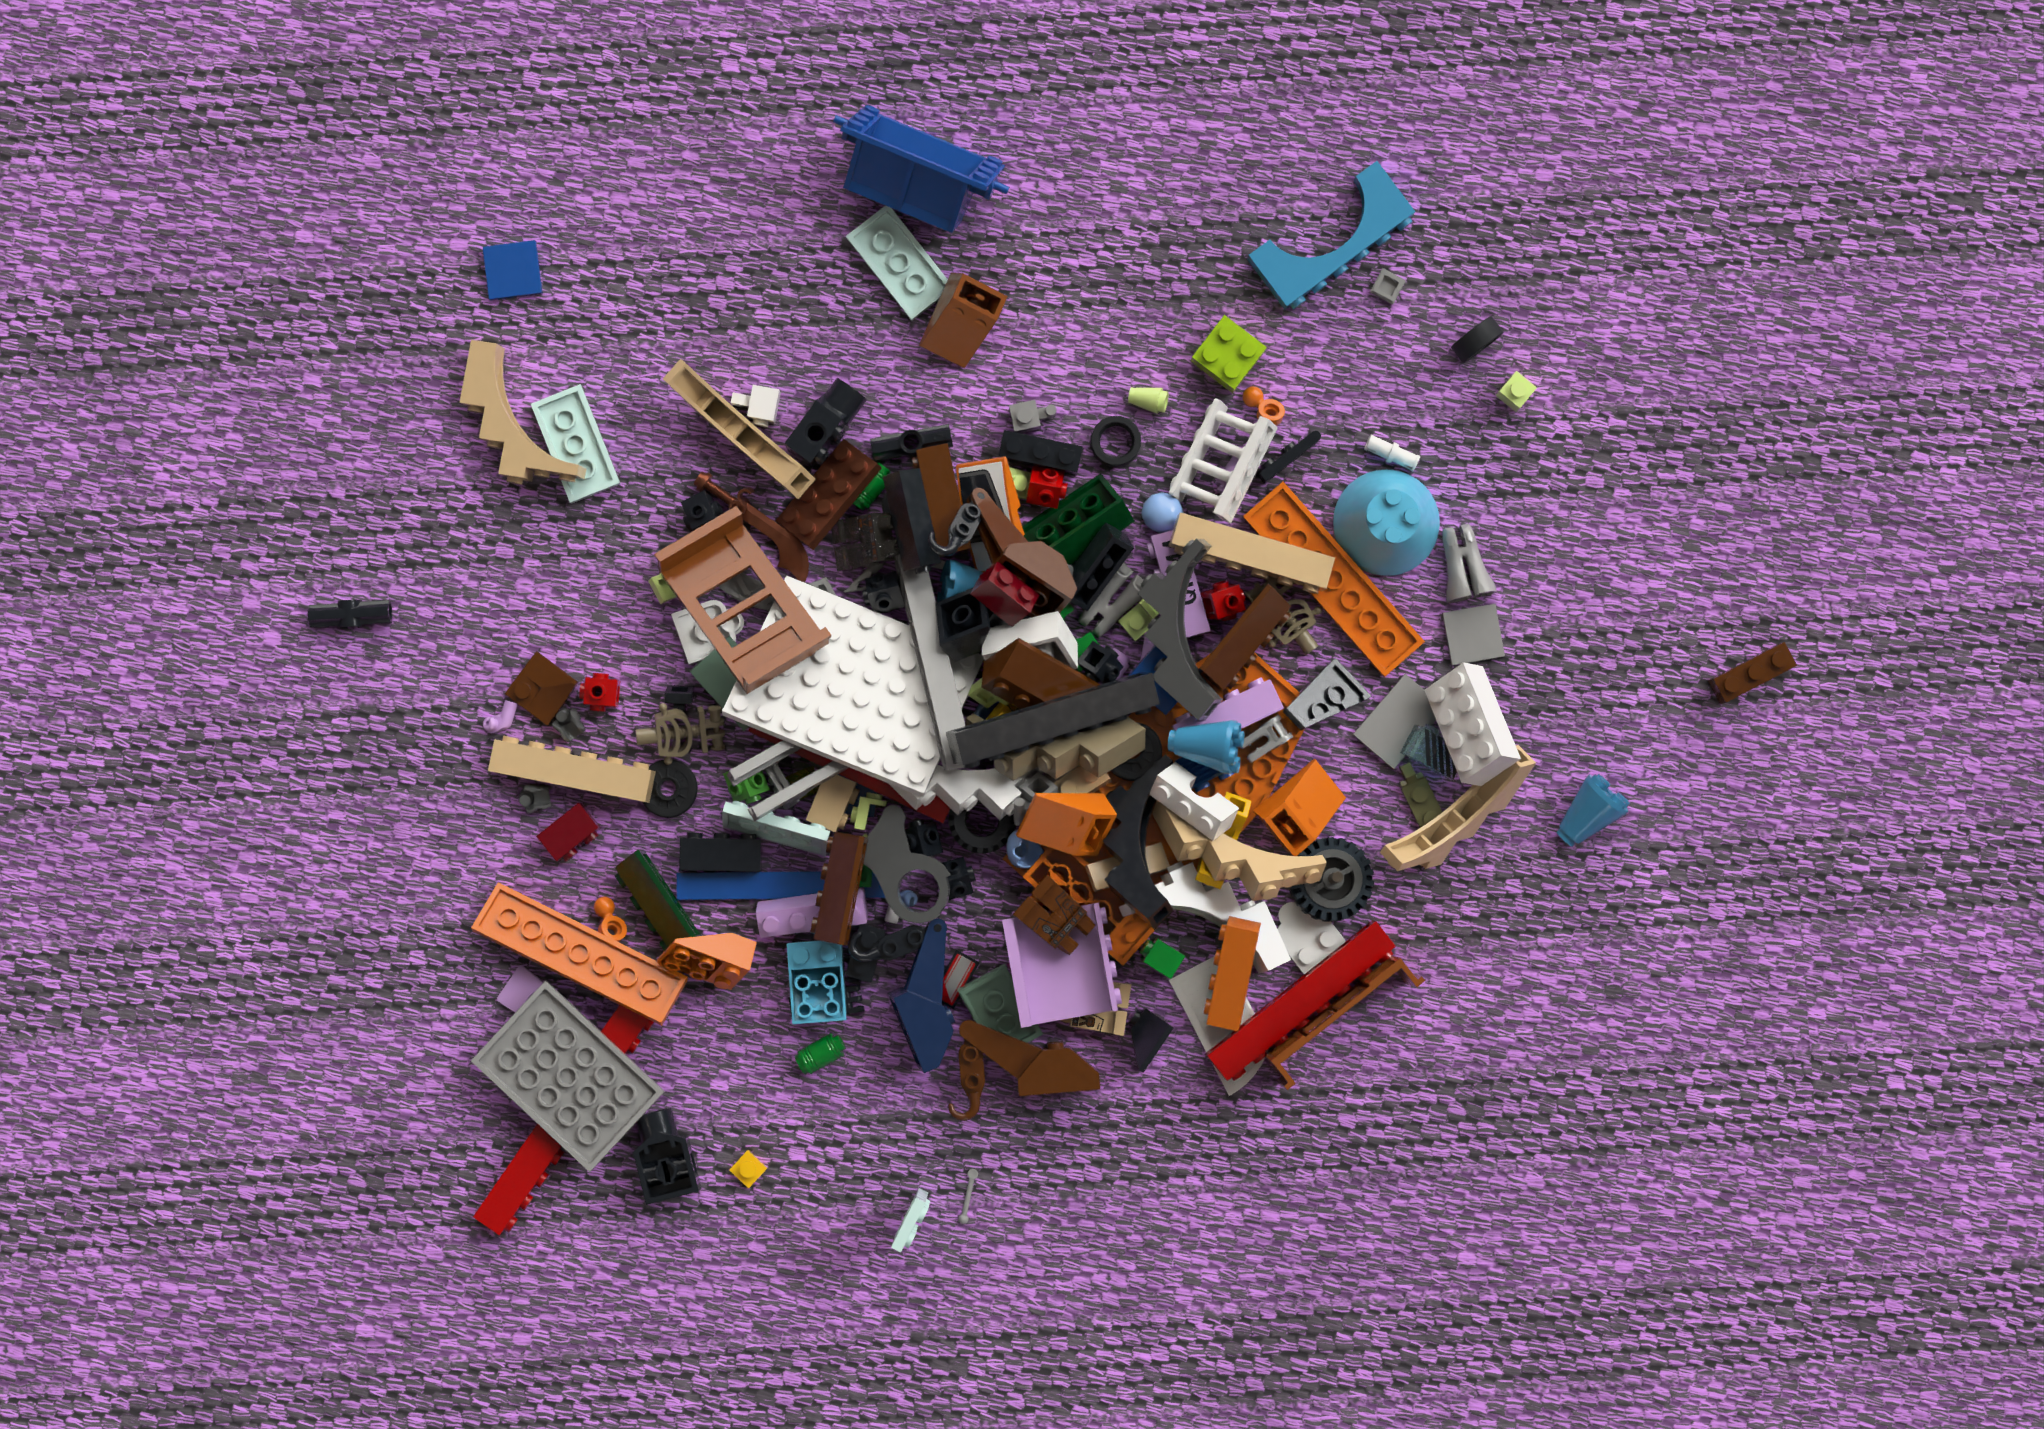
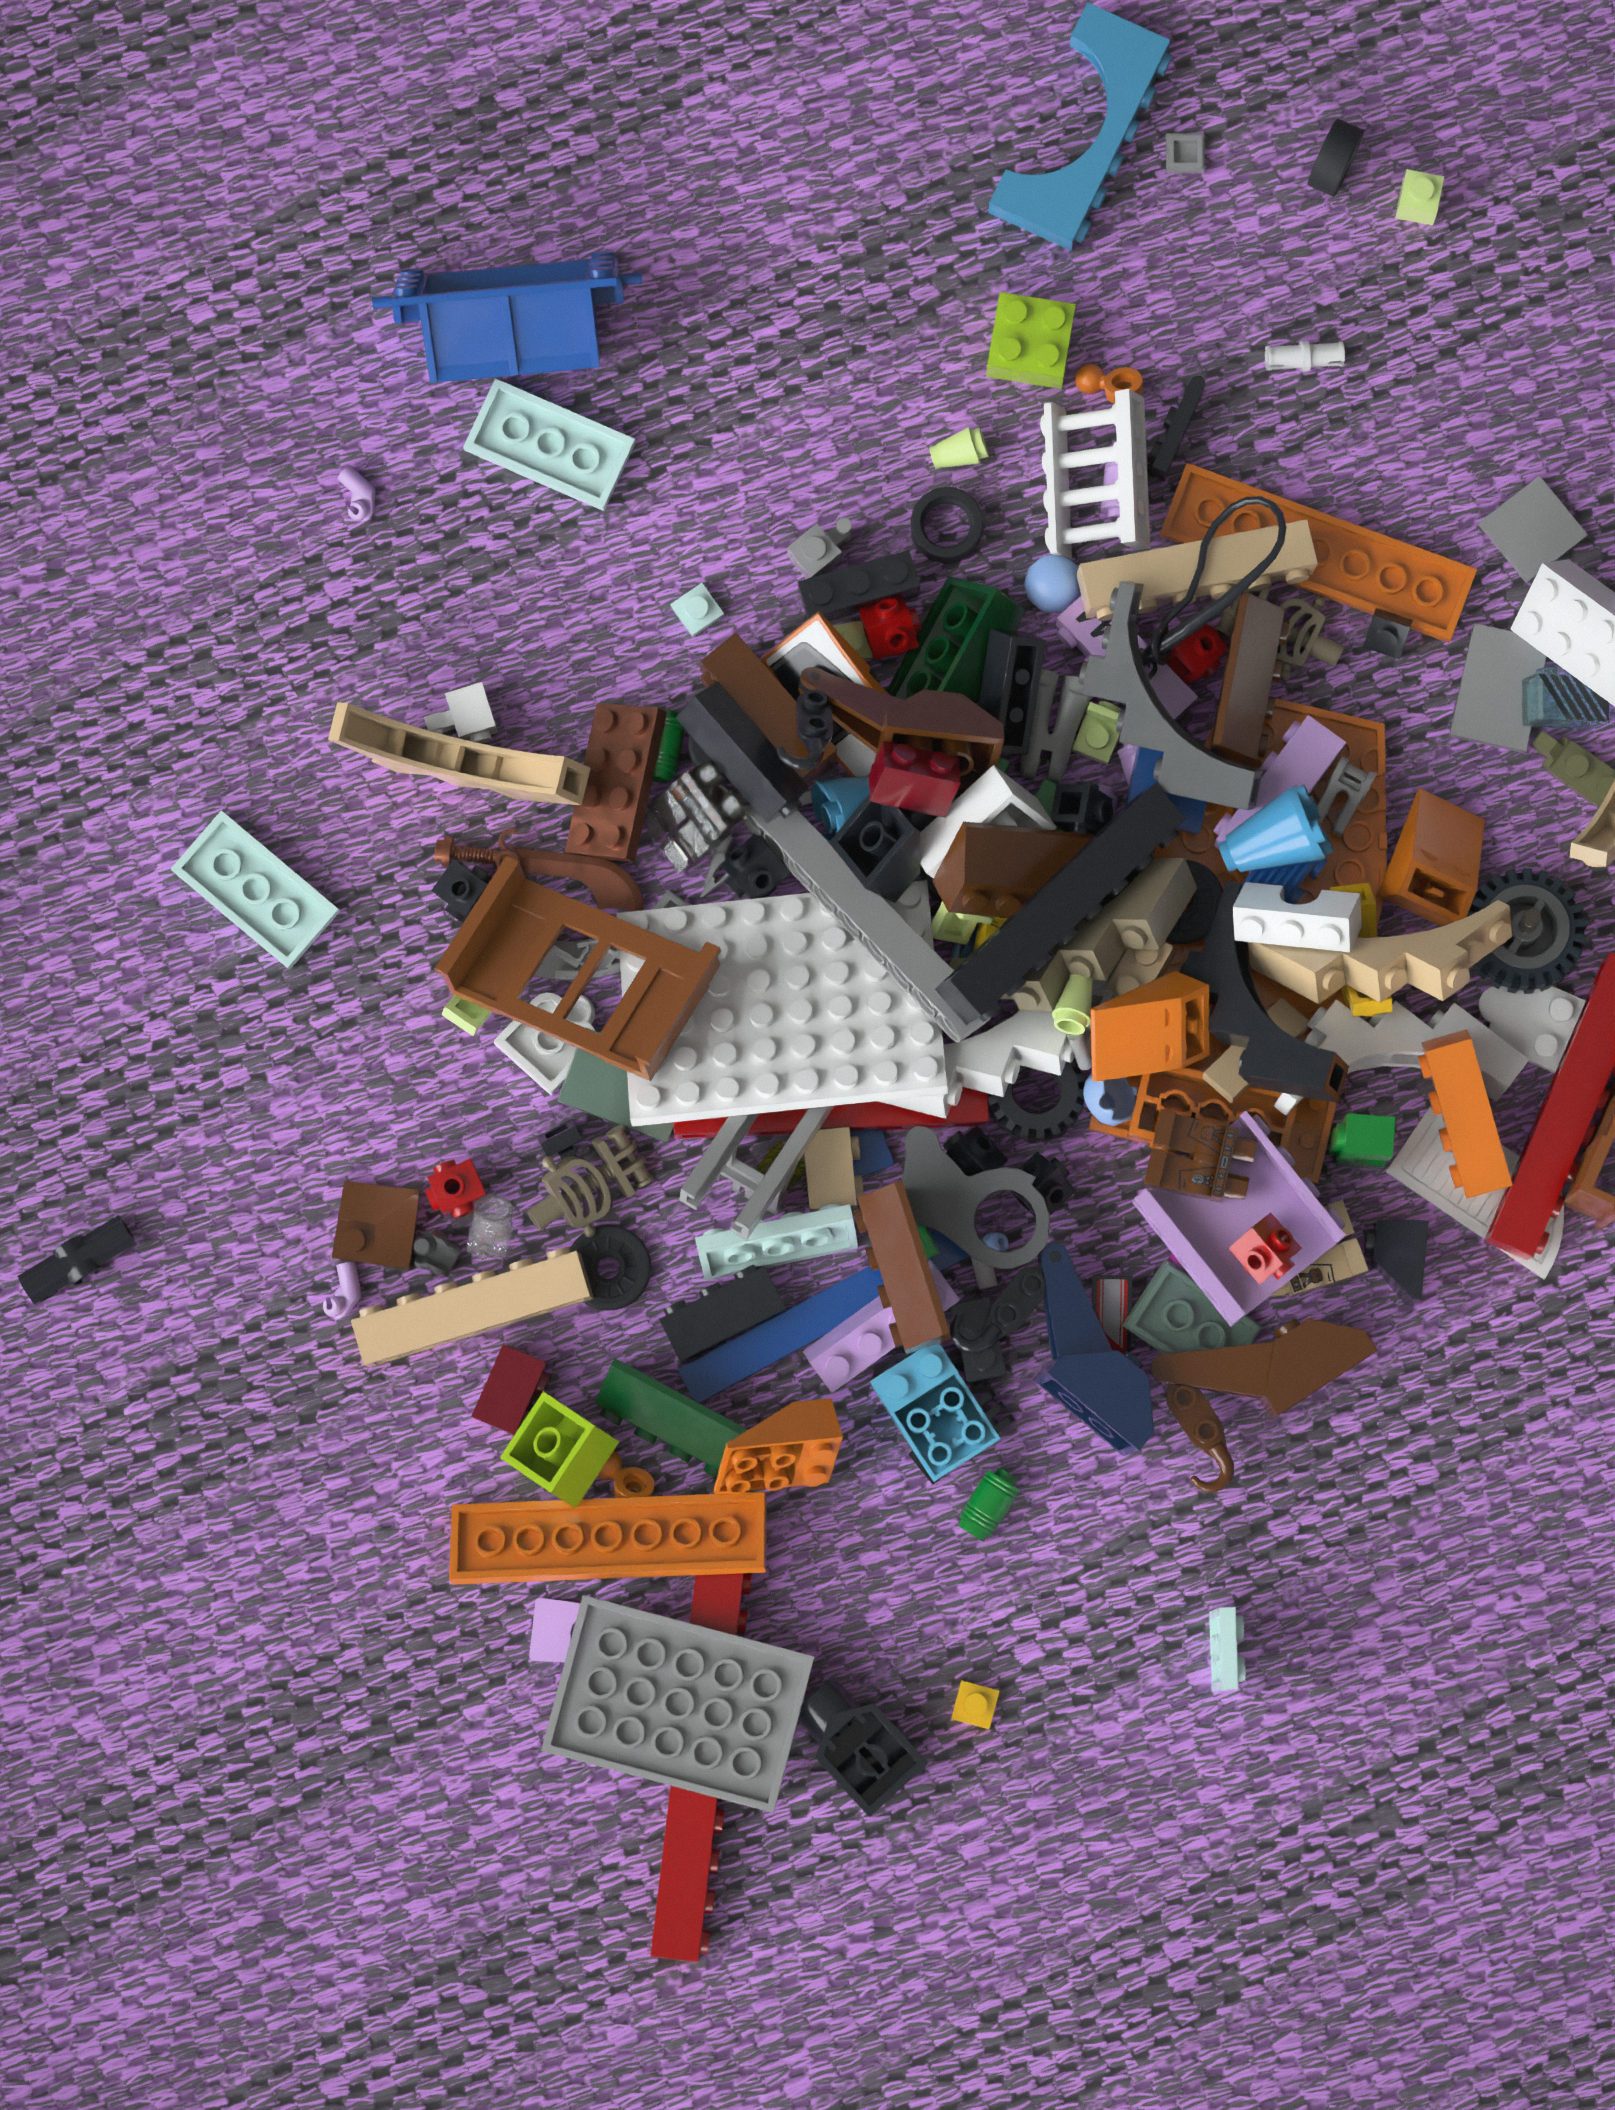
camera: 20 degrees left, 5 degrees down
(485, 394) = (104, 884): tan arch -> none
(512, 270) = (57, 713): blue tile -> none
(534, 797) = (441, 1370): dark grey arm -> none
(578, 884) = (559, 1449): none -> lime brick
(608, 728) = (491, 1228): none -> clear piece
(749, 789) = (714, 1210): bright green brick -> none
(769, 233) = (362, 491): none -> lavender arm
(826, 415) = (563, 686): black brick -> none
(860, 814) = (876, 1166): yellowish green bracket -> none
(893, 445) = (666, 678): black piece -> none
(935, 412) = (697, 610): none -> light aqua plate
(962, 319) = (668, 471): dark orange slope -> none
(972, 1174) = (1288, 1620): light grey hinge -> none
(1028, 784) = (1073, 1008): none -> yellowish green cone
(1065, 993) = (1266, 1249): none -> red brick
(1206, 585) = (1161, 648): none -> black piece
(1325, 696) = (1390, 702): wing -> none
(1348, 652) = (1387, 633): none -> black plate
(1386, 522) = (1345, 446): medium azure cone -> none
(1457, 583) = (1480, 477): light grey piece -> none

